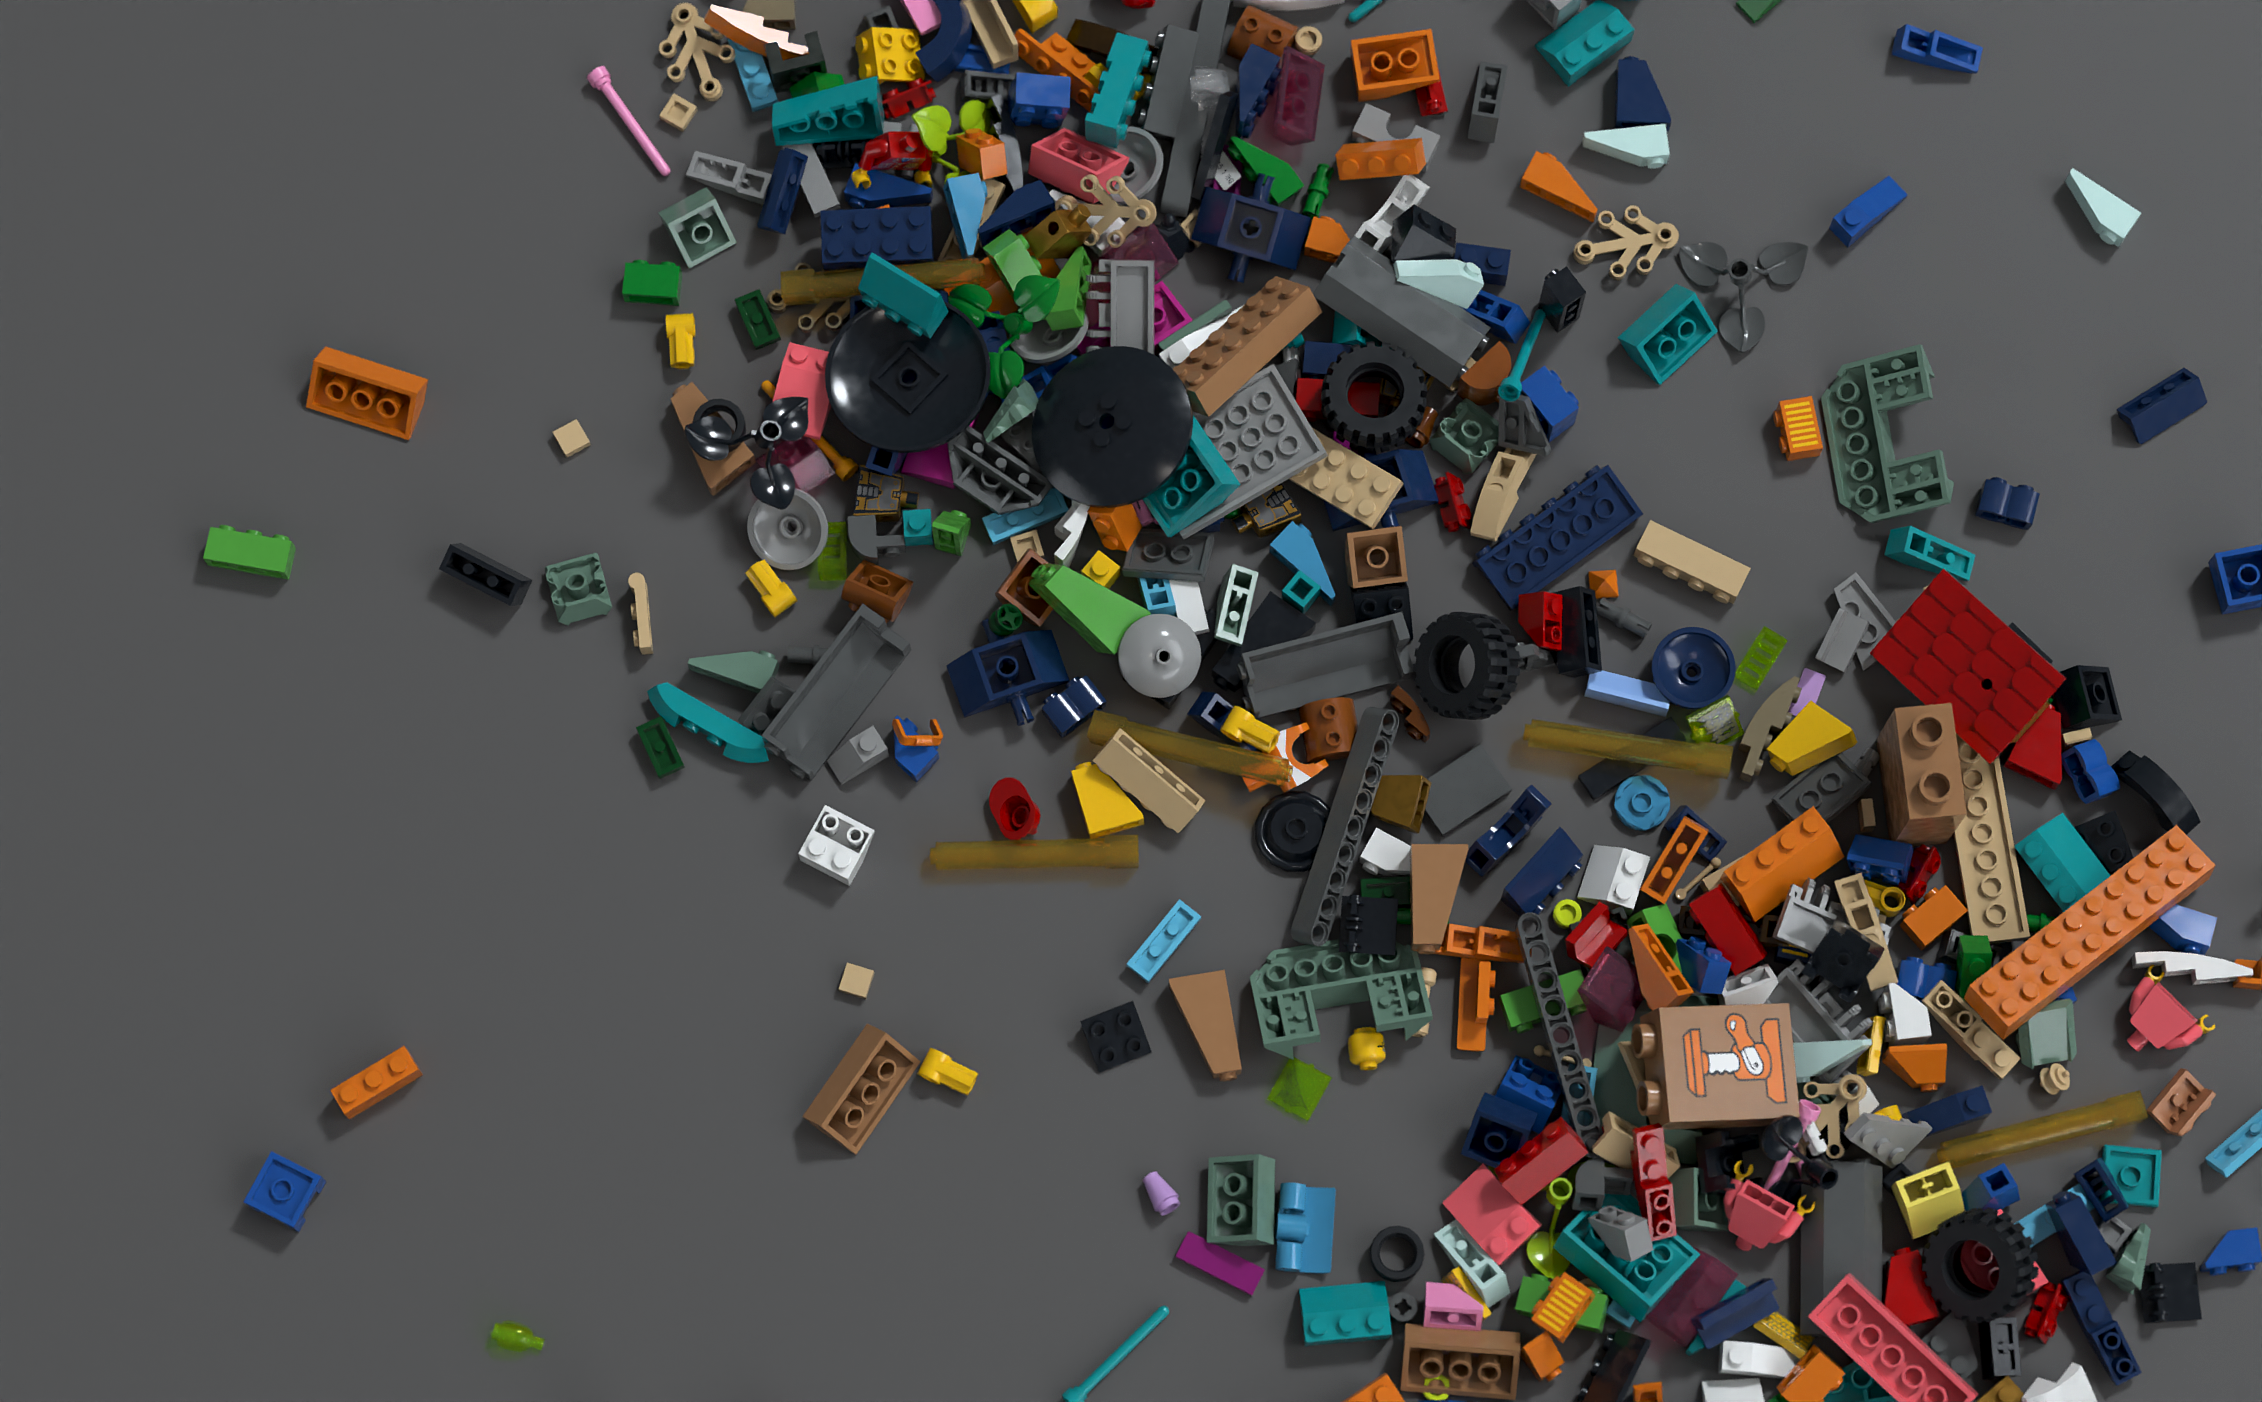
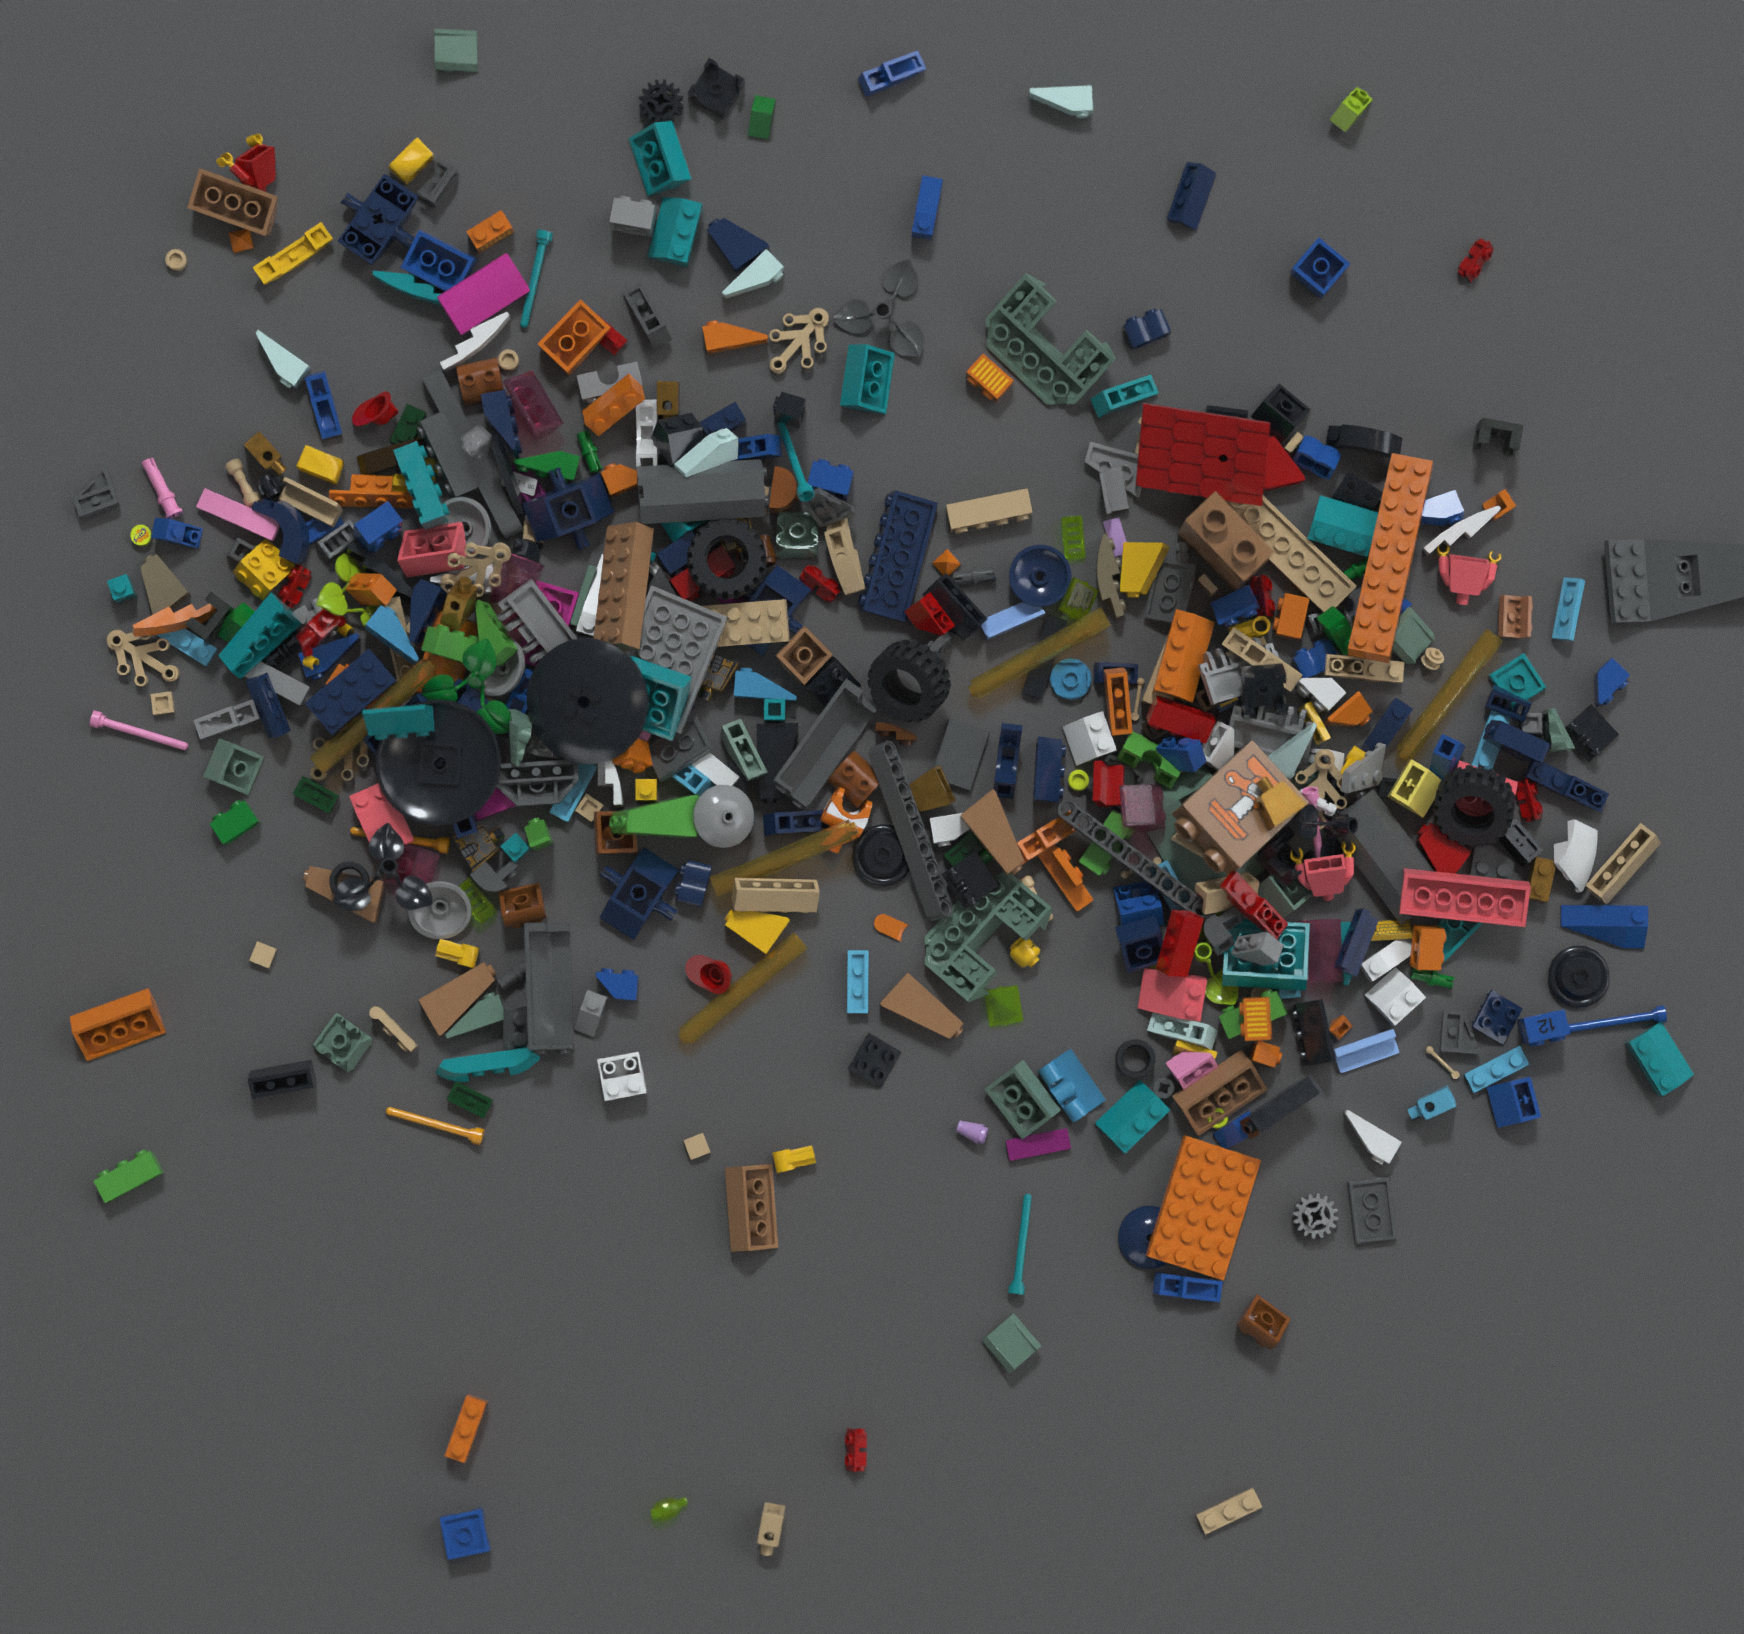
camera: 45 degrees left, 10 degrees up
(635, 788) = (474, 1135): none -> light orange piece
(680, 332) = (276, 839): yellow piece -> none
(730, 630) = (456, 997): none -> medium nougat slope
(918, 740) = (622, 977): orange piece -> none
(1006, 613) = (616, 860): dark green wheel -> none
(1148, 26) = (407, 424): none -> dark green plate
(1244, 727) = (807, 820): yellow piece -> none
(1244, 911) = (889, 926): none -> orange piece
(1448, 190) = (667, 391): none -> pearl gold torso
(1656, 971) = (1161, 779): orange slope -> none
(1764, 1086) = (1277, 802): none -> pearl gold torso

